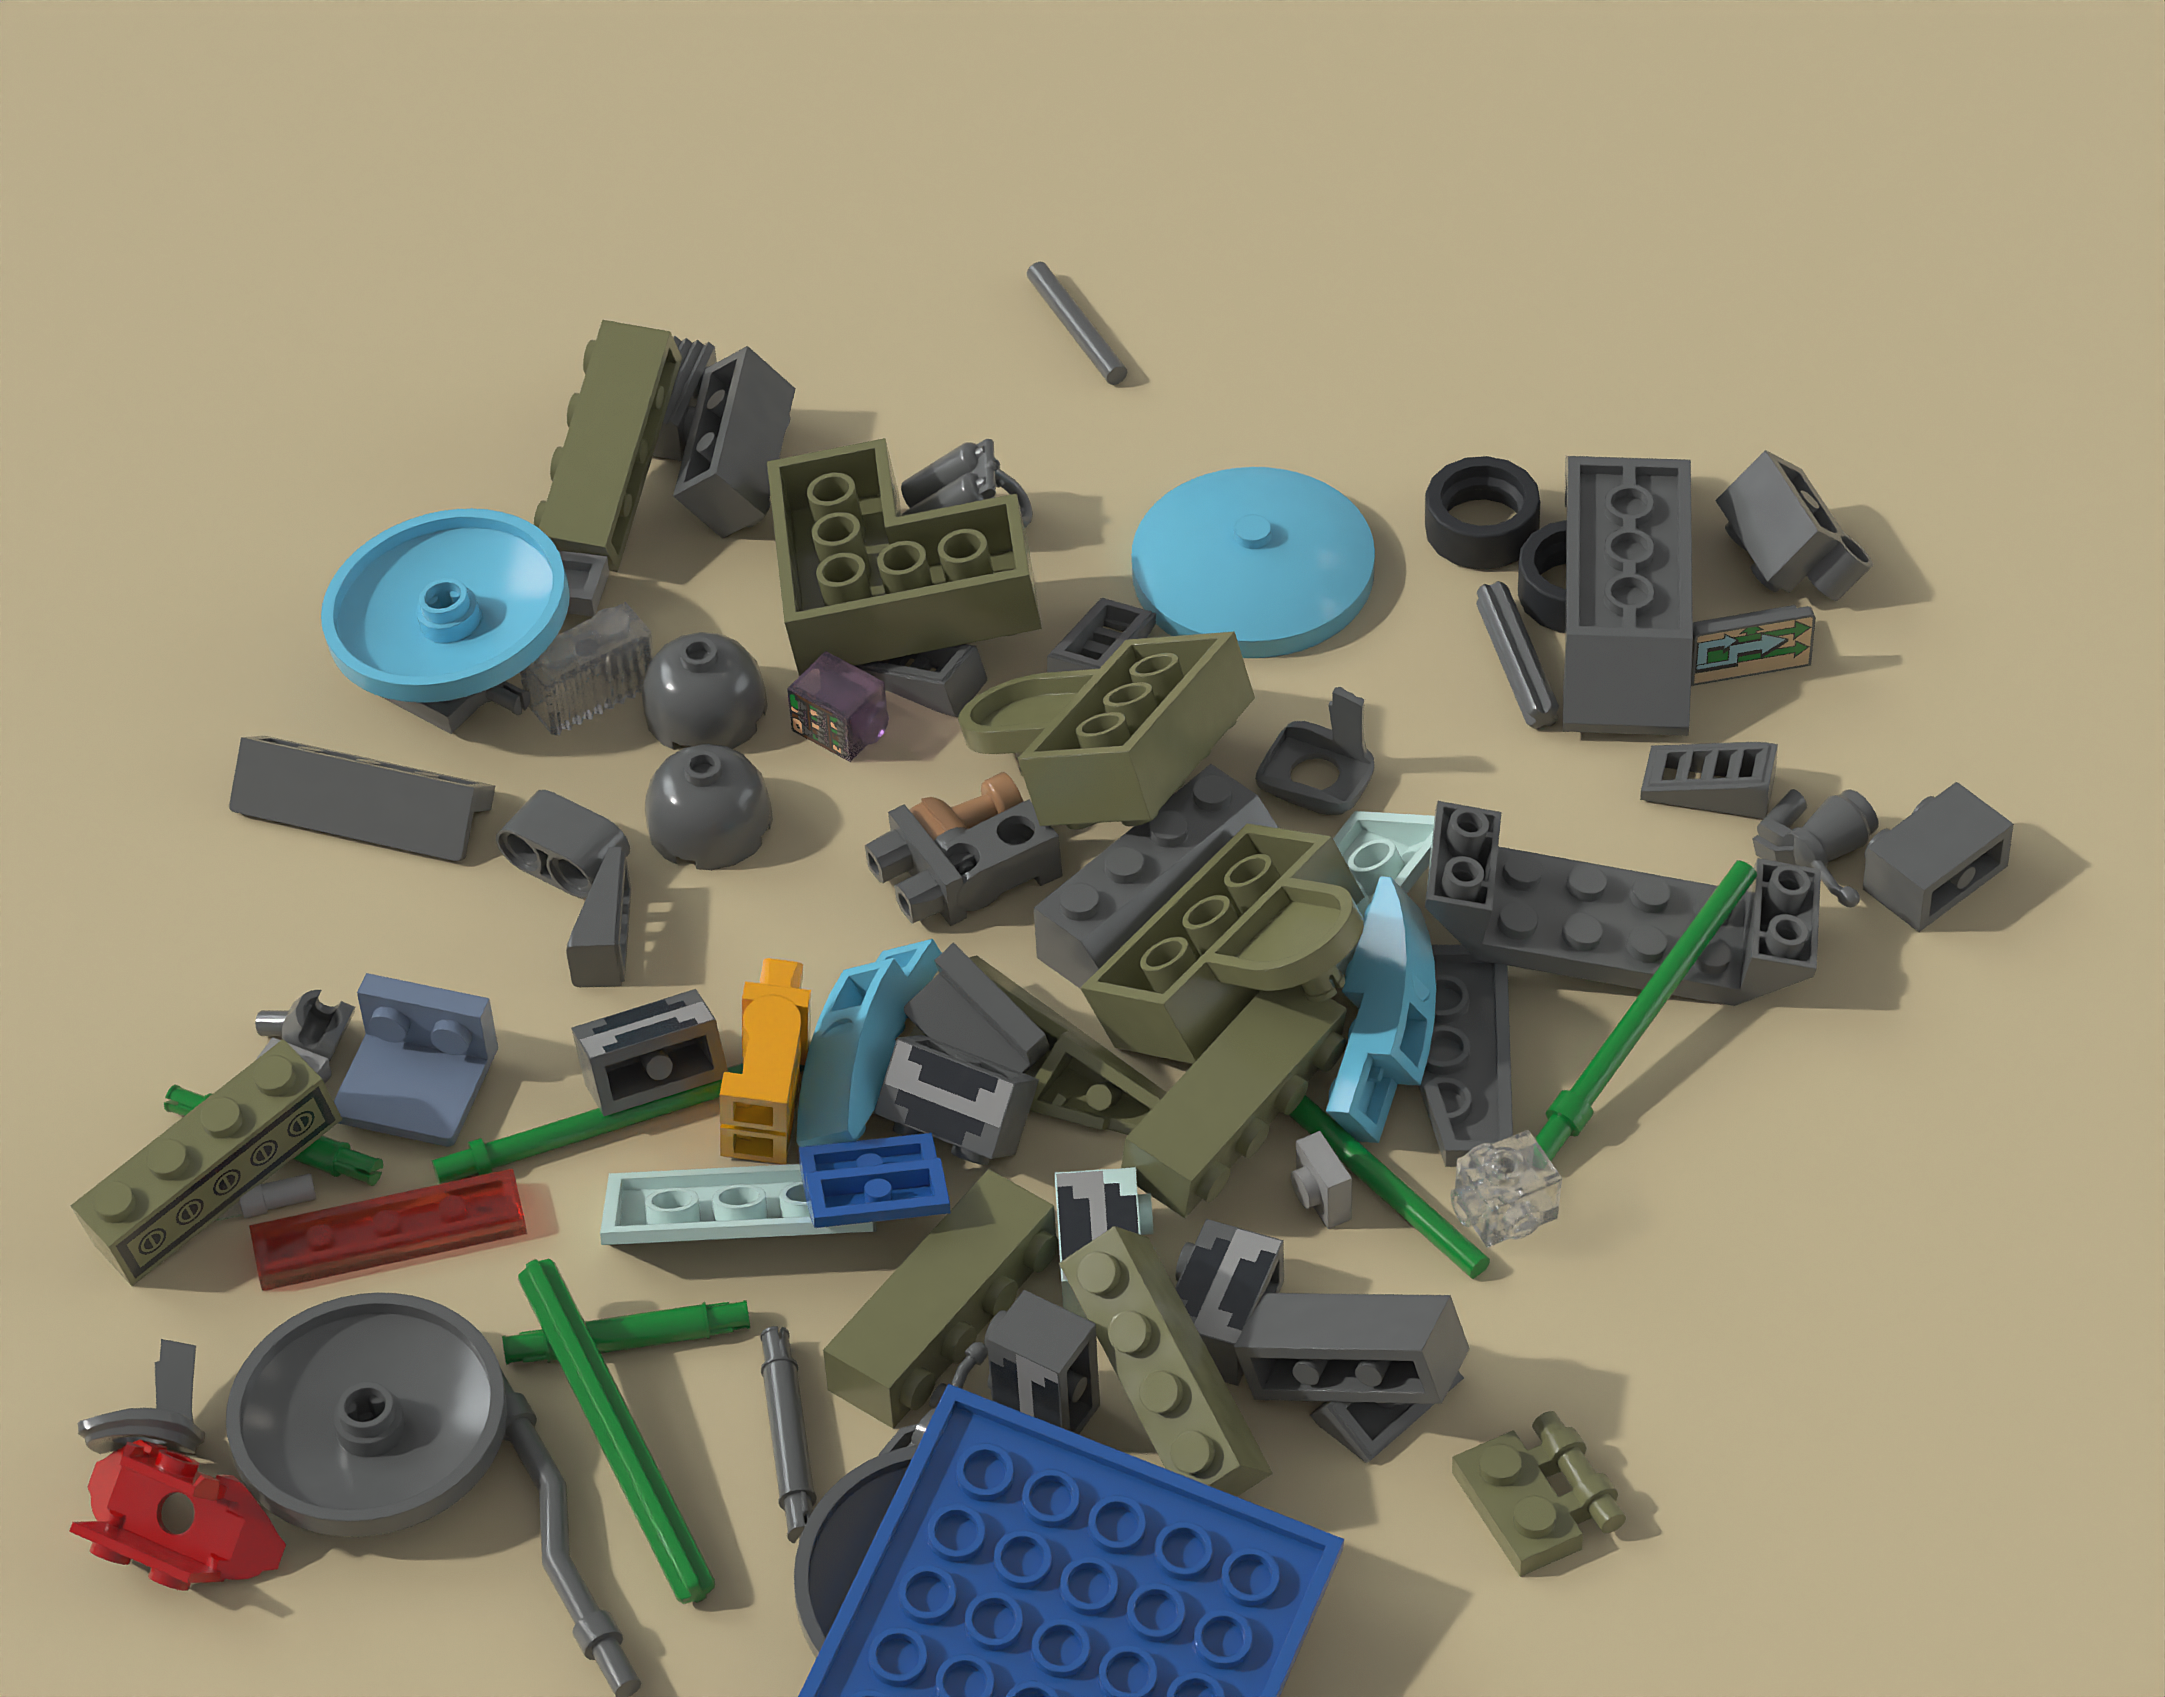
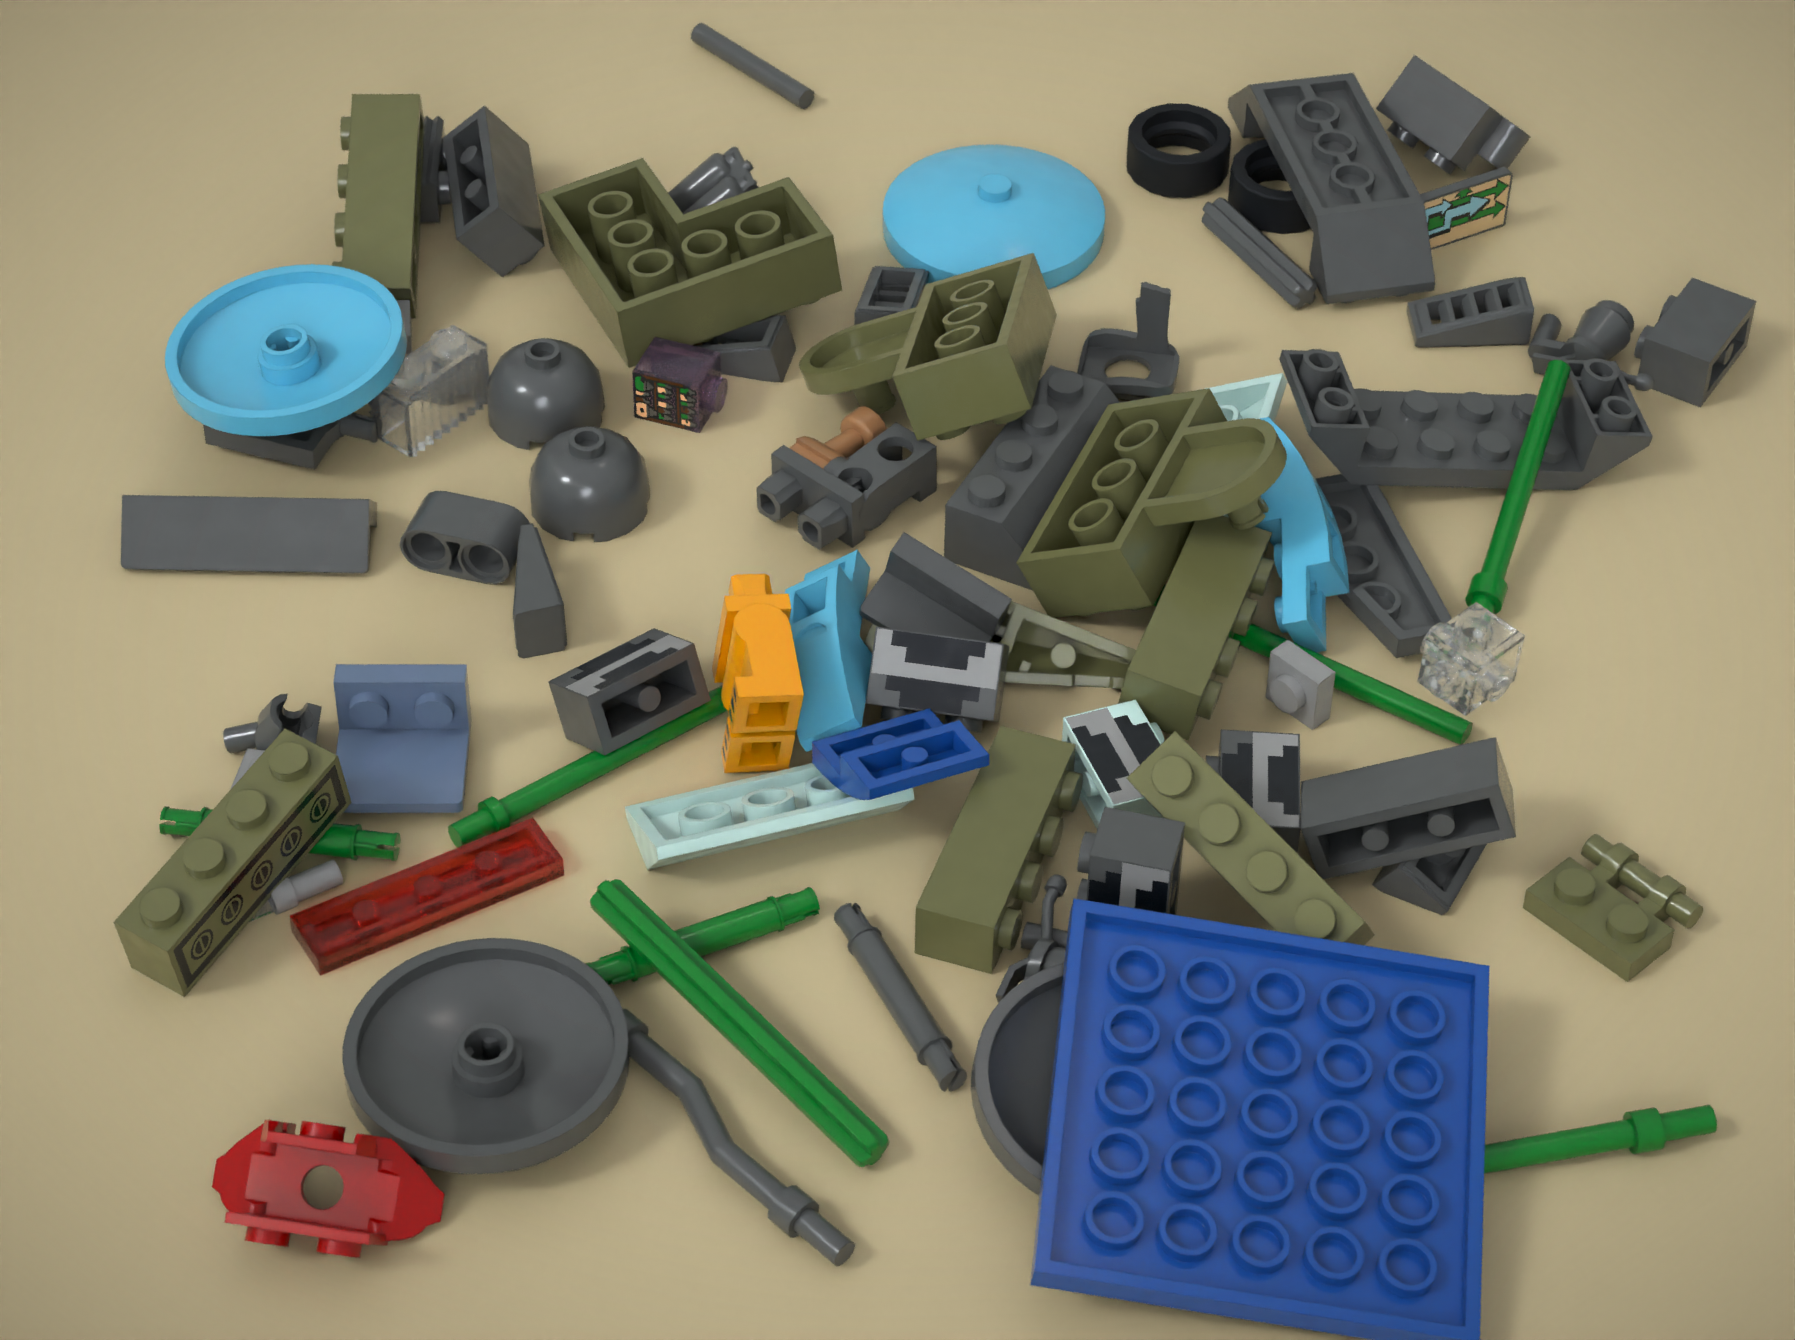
camera: 20 degrees left, 5 degrees down
(168, 1423) = (276, 1099): dark grey piece -> none

